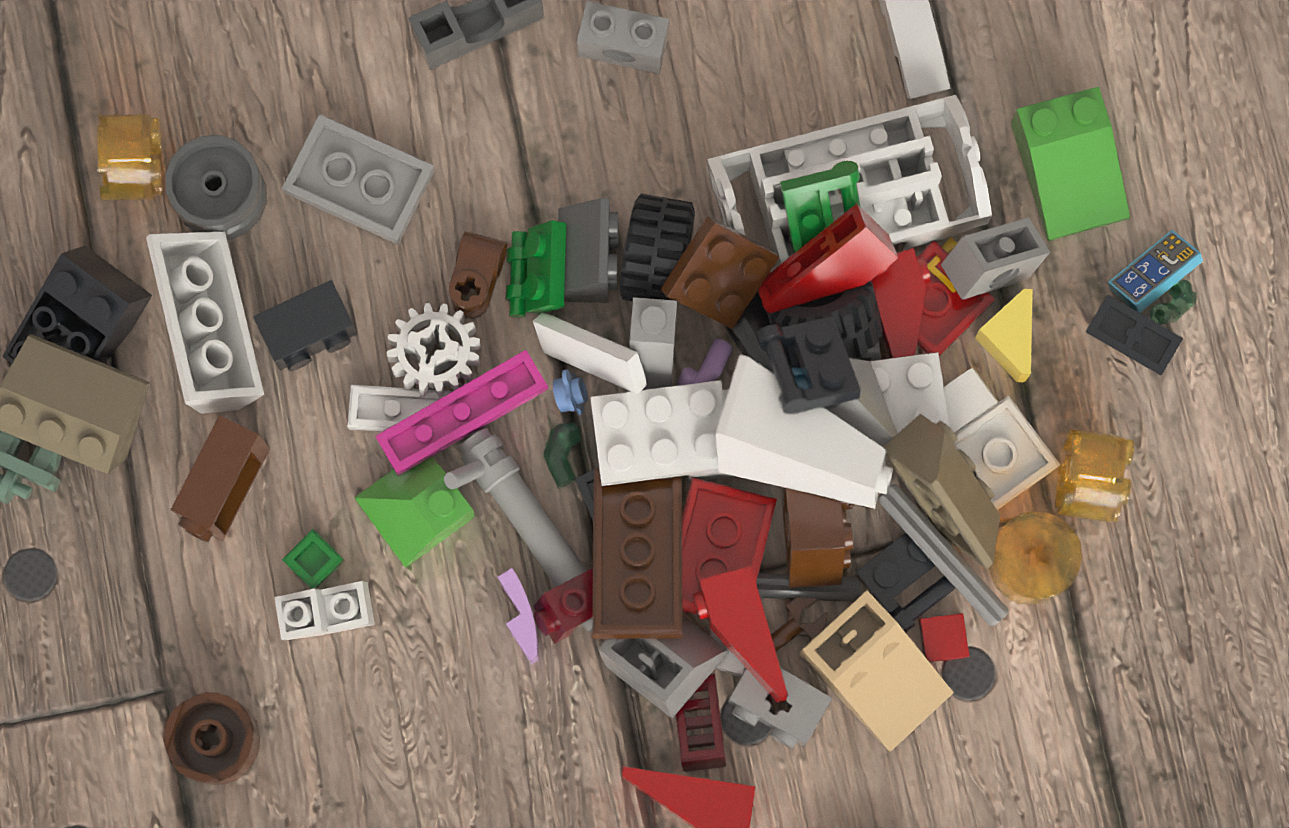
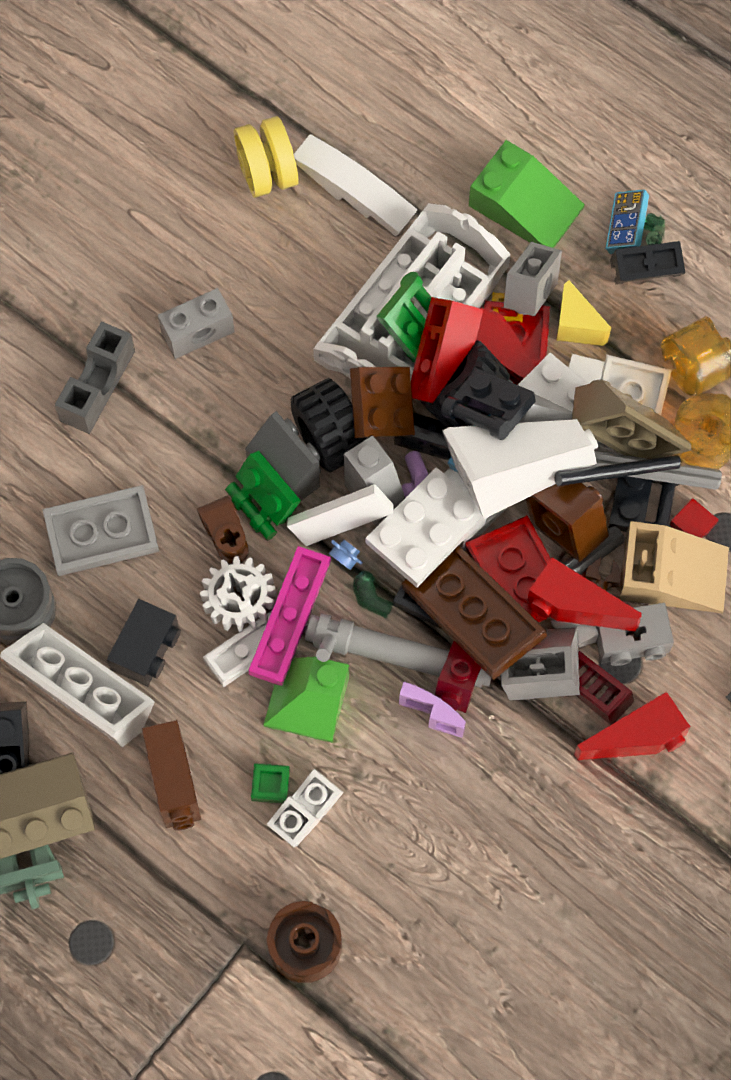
camera: 40 degrees left, 10 degrees down
(892, 531) = (617, 470): none -> black bar

